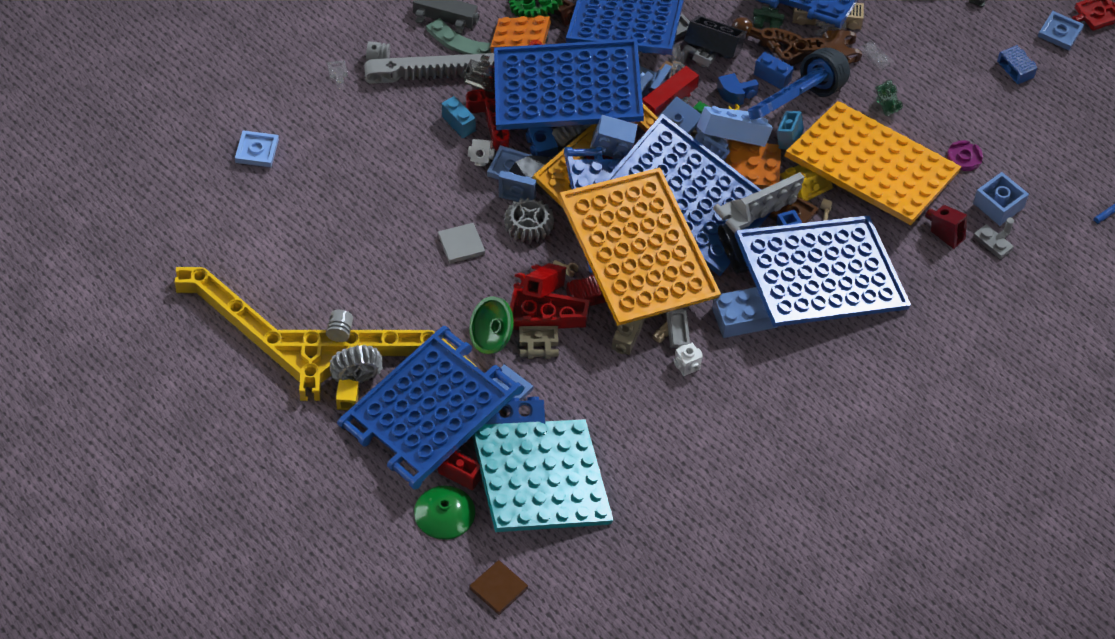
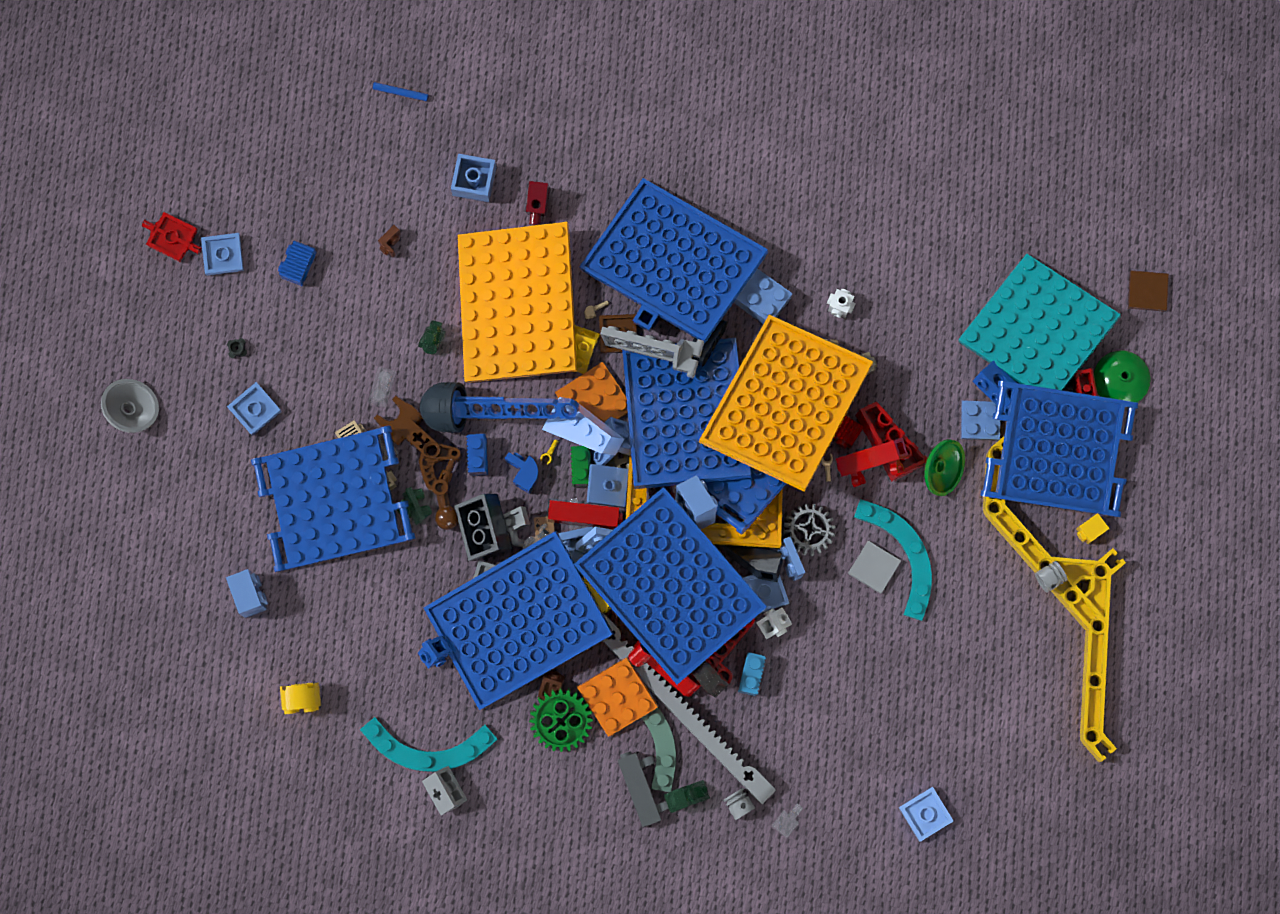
camera: 125 degrees left, 25 degrees up
(356, 363) = (1069, 538): light grey gear -> none
(413, 29) = (687, 796): none -> clear green slope
(454, 276) = (913, 548): none -> teal plate
(538, 336) = (915, 432): dark tan plate -> none
(678, 328) = (822, 327): light grey tile -> none
(790, 129) = (542, 388): dark azure brick -> none
(959, 155) = (444, 245): magenta tile -> none
(991, 123) = (390, 237): none -> copper bracket
(995, 241) = (516, 161): light grey plate -> none

